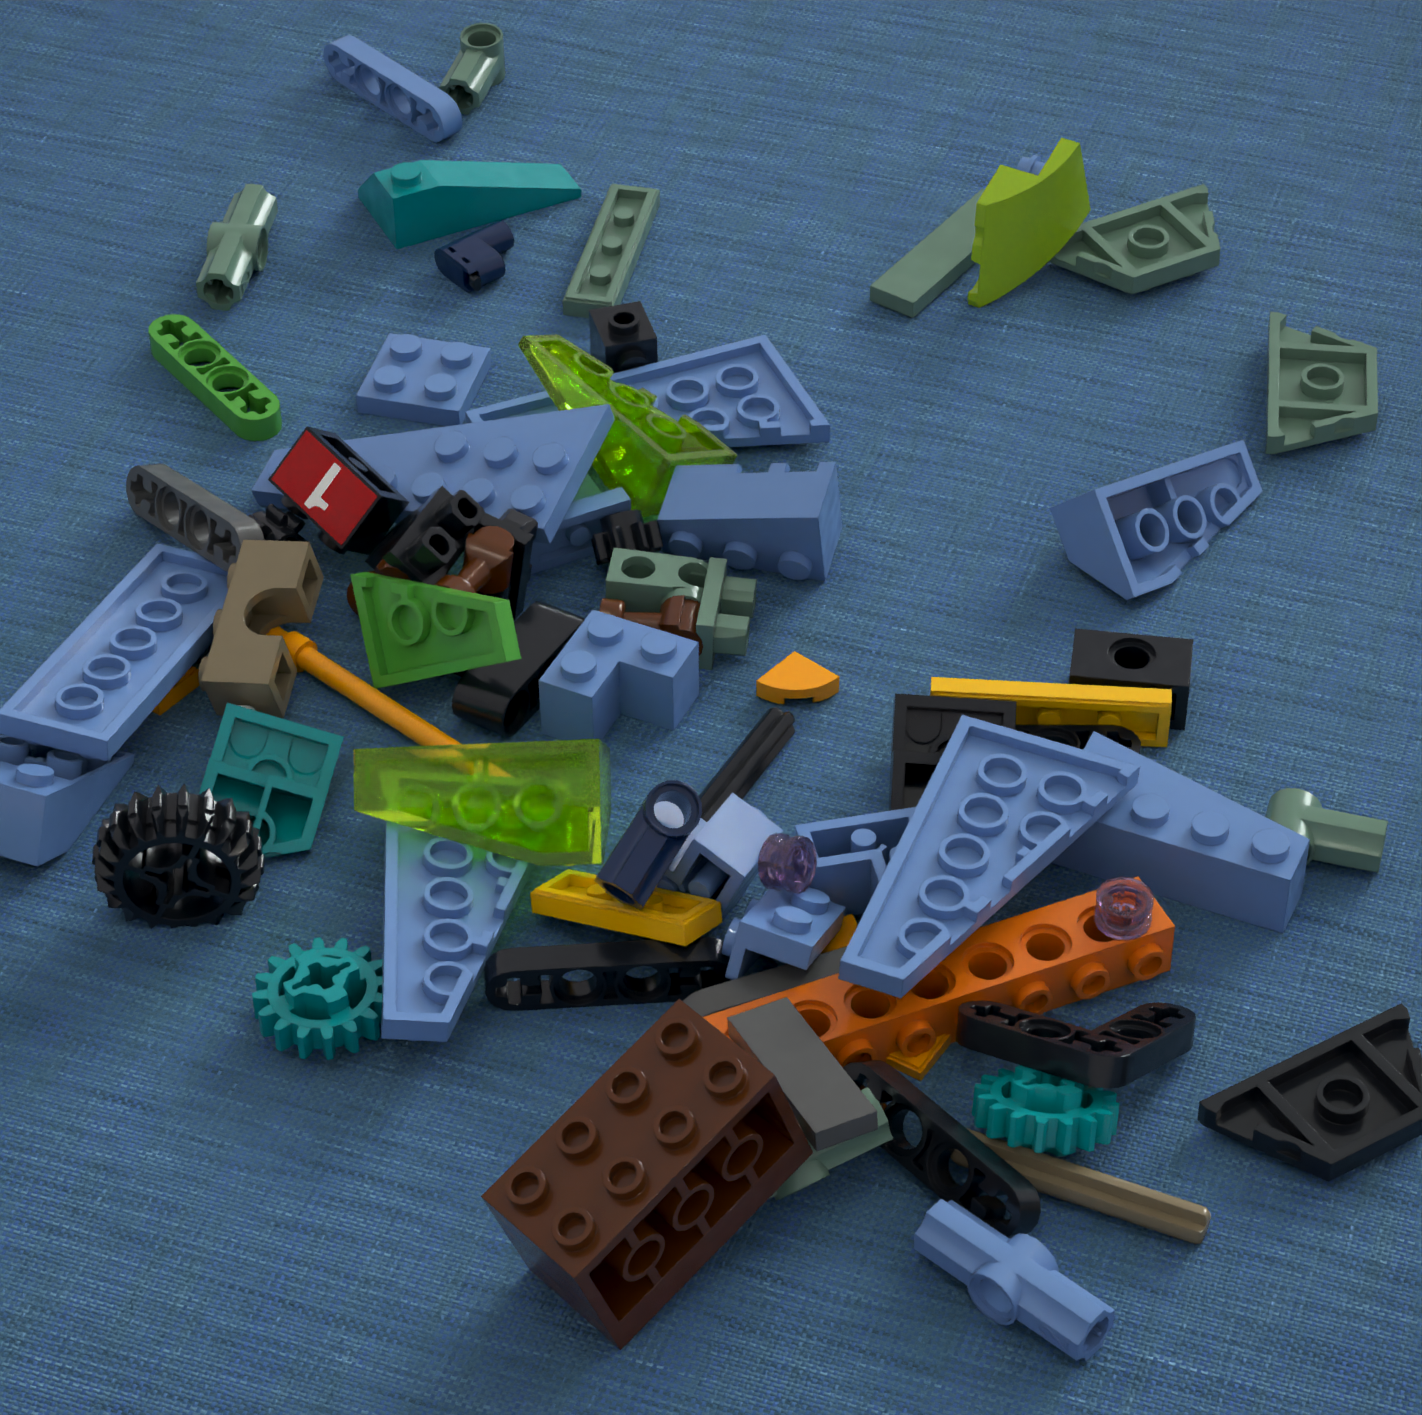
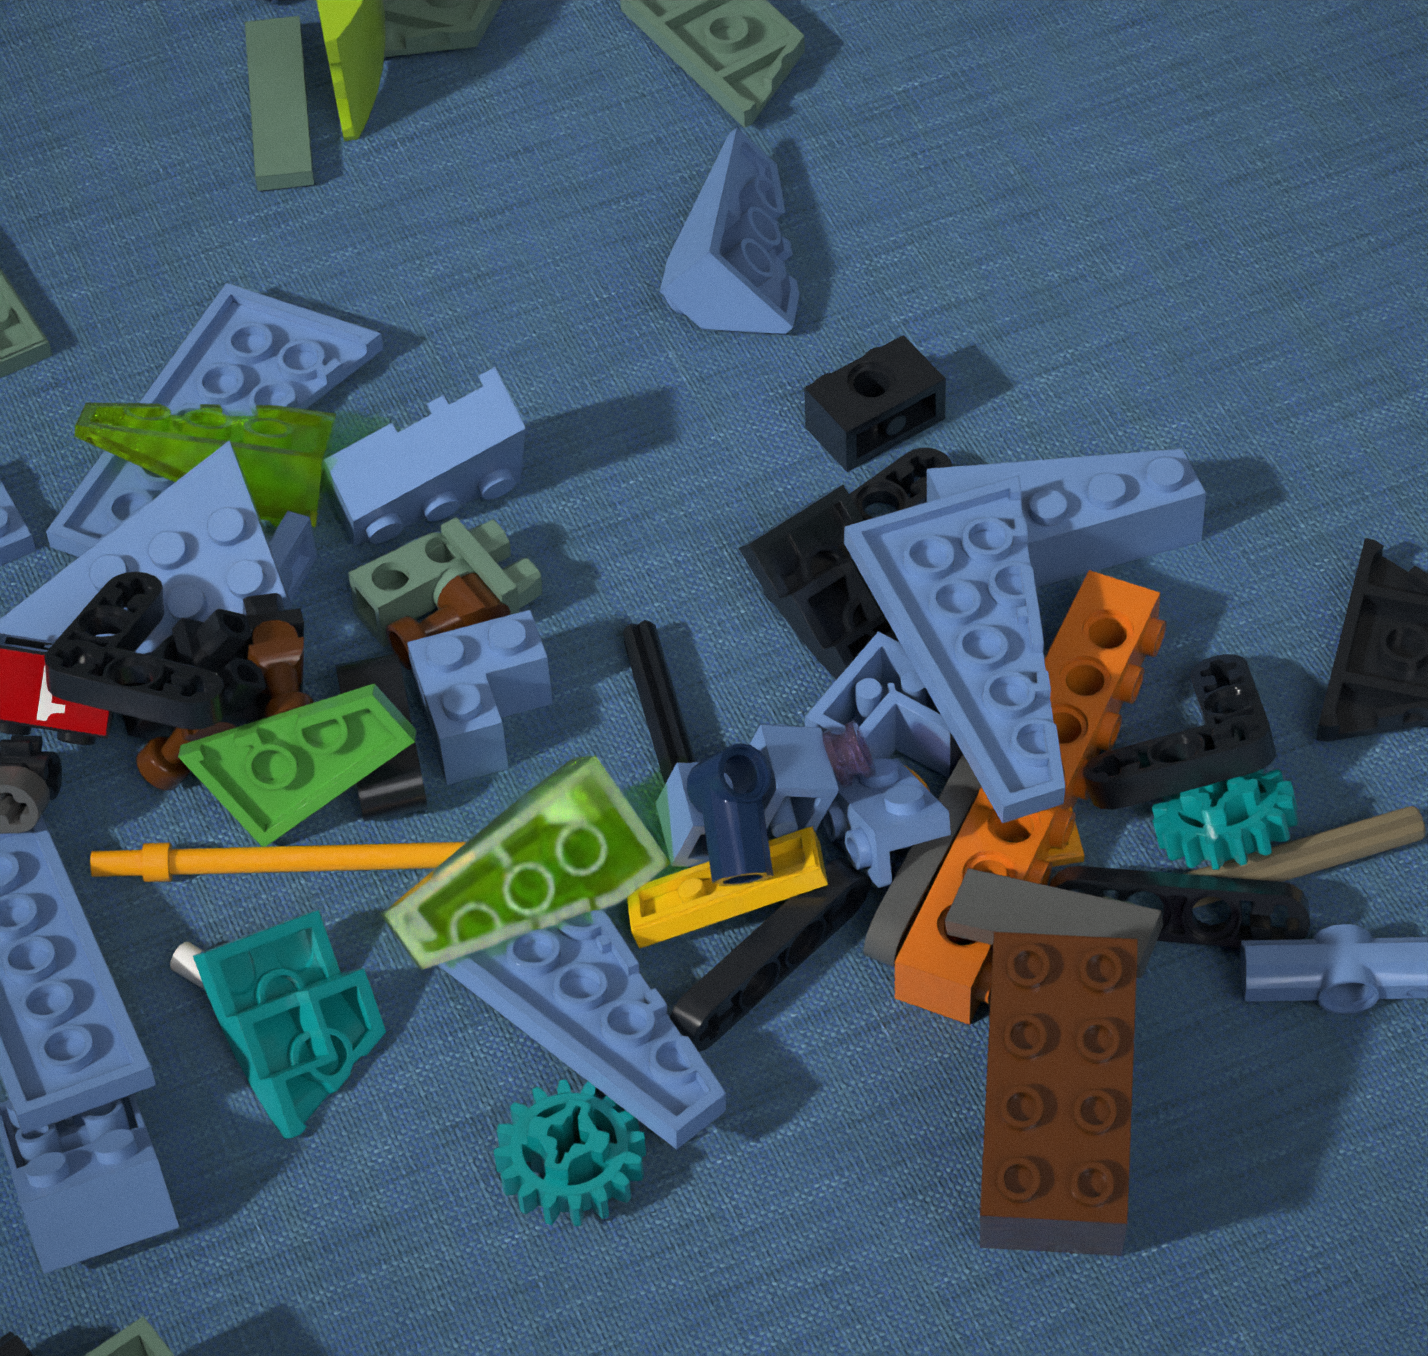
camera: 40 degrees left, 10 degrees up
(178, 858) = (321, 1125): black gear -> none
(266, 588) = (150, 909): dark tan arch -> none
(357, 481) = (95, 668): none -> black beam
(622, 336) = (106, 368): black brick -> none
(625, 531) = (333, 555): black gear -> none
(797, 679) = (611, 586): light orange tile -> none
(1038, 703) = (915, 427): yellow tile -> none
(1120, 923) = (1135, 600): clear purple bush -> none
(1333, 835) = (1183, 424): sand green piece -> none

